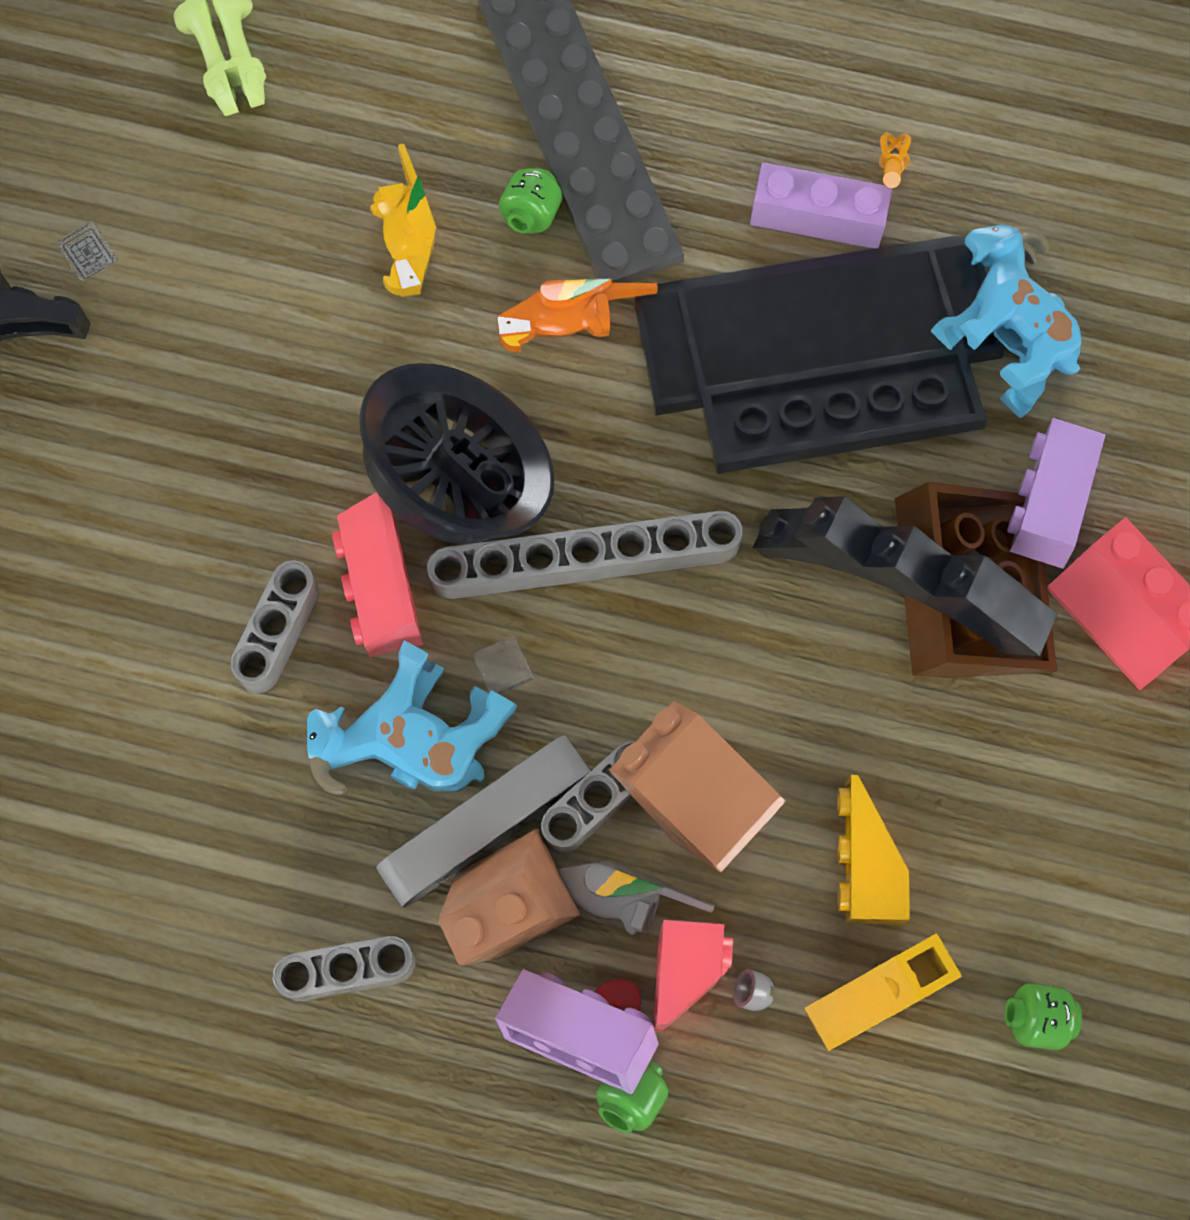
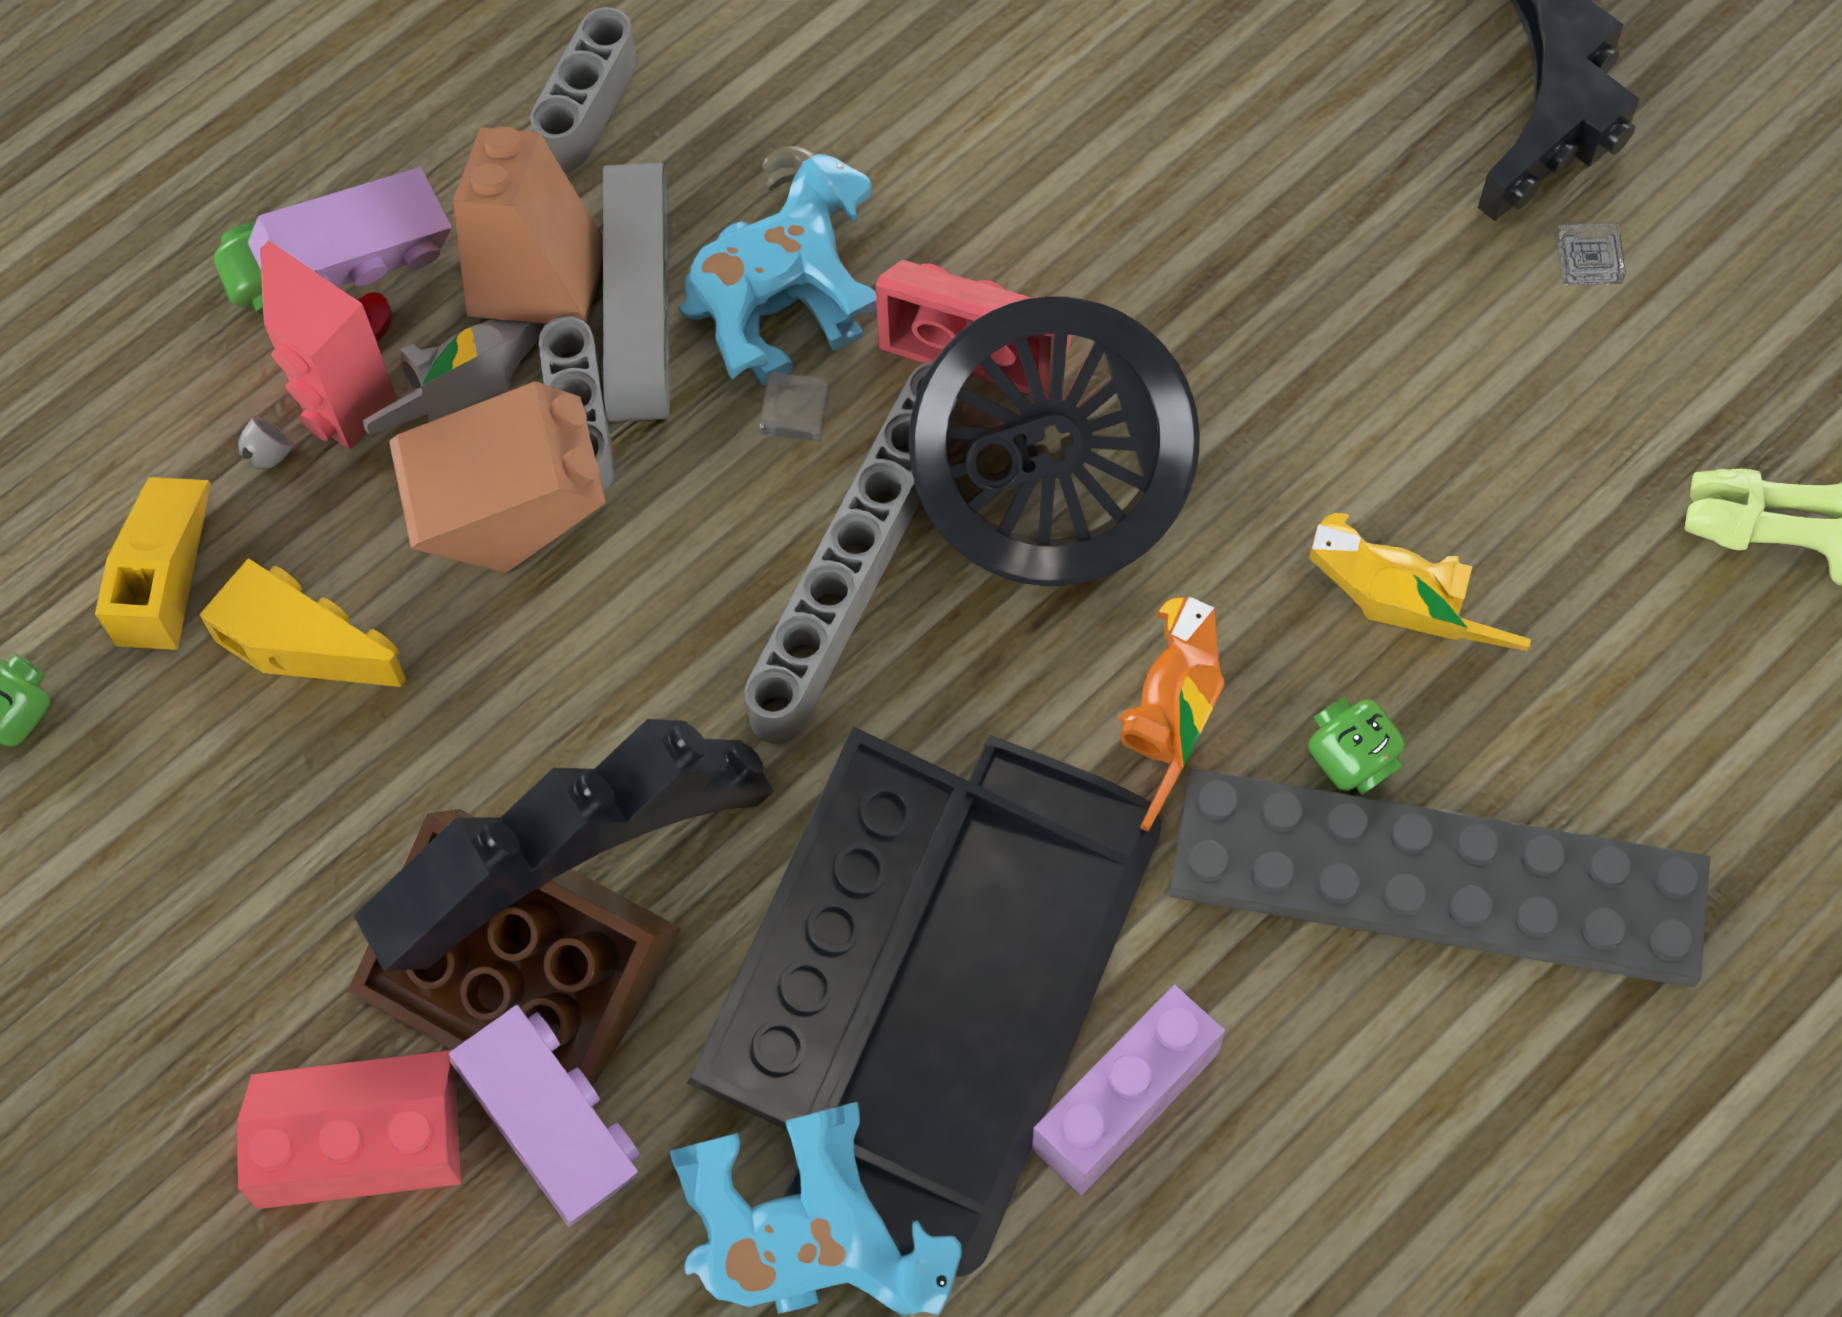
camera: 125 degrees right, 10 degrees down
(273, 605) = (996, 229): light grey beam -> none
(894, 164) = (1118, 1210): light orange piece -> none

